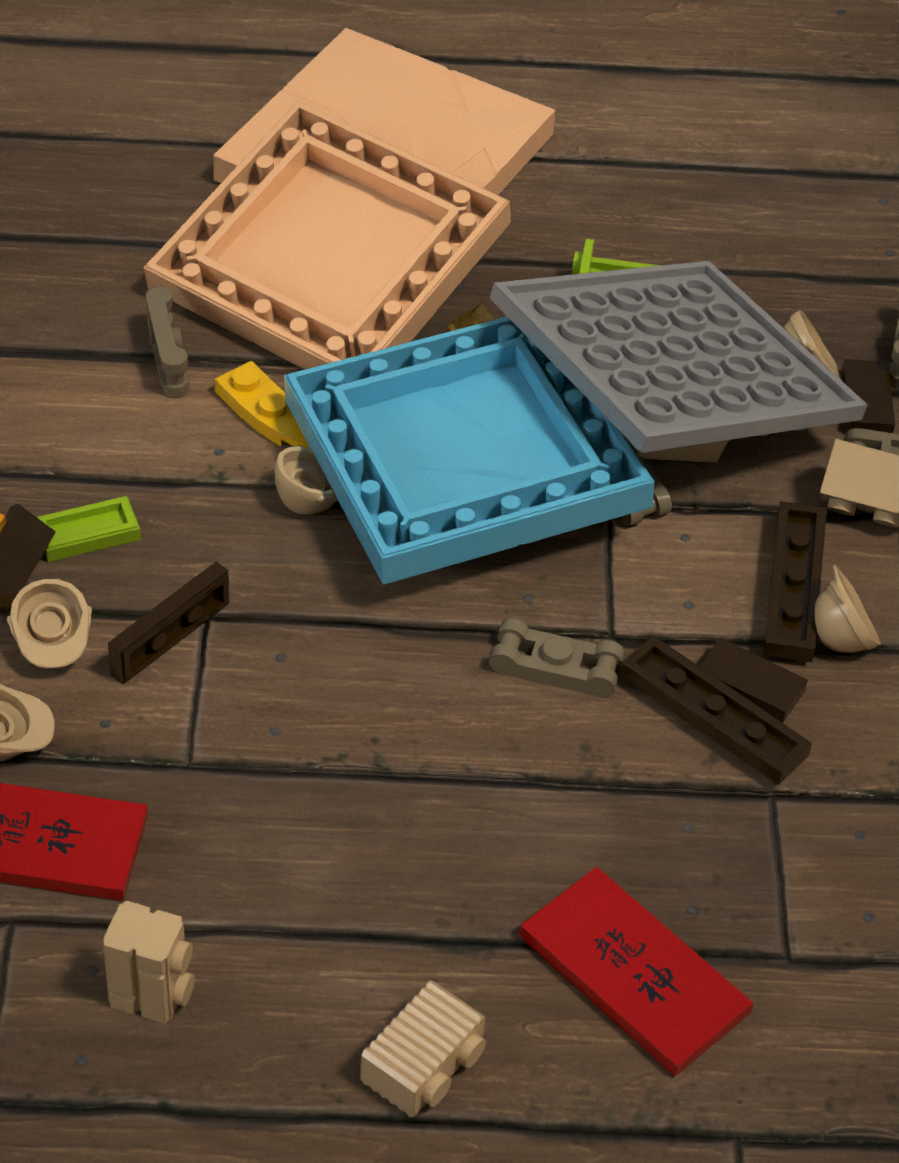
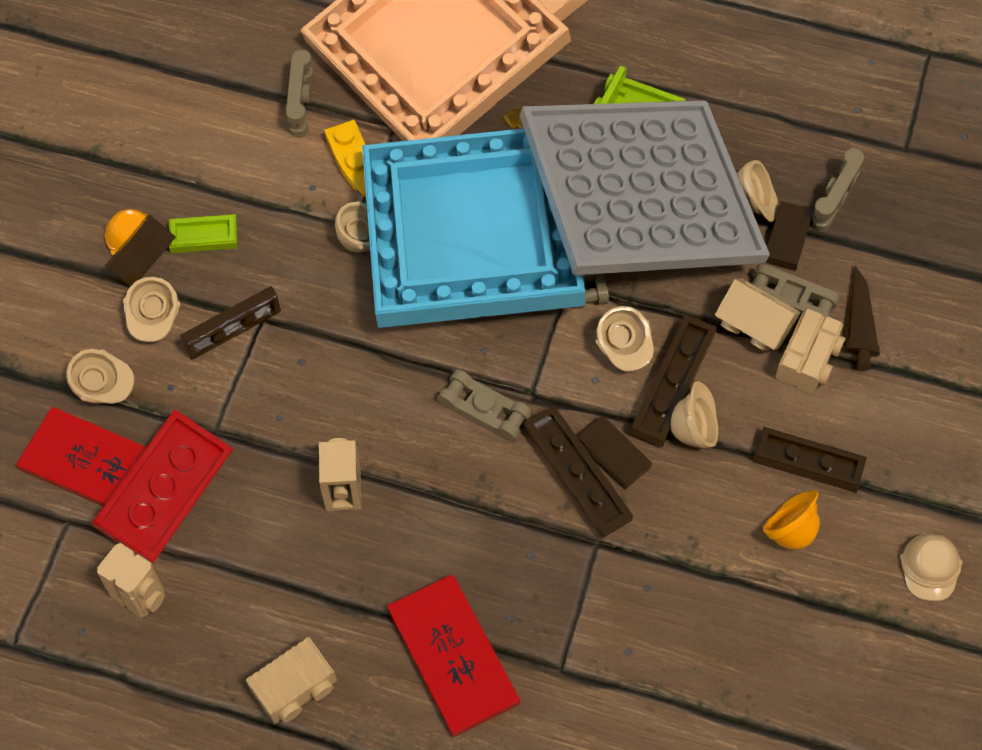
camera: 20 degrees right, 15 degrees up
(143, 834) = (162, 486): none -> red tile
(400, 769) = (340, 474): none -> tan brick
(714, 540) = (625, 338): none -> tan hat

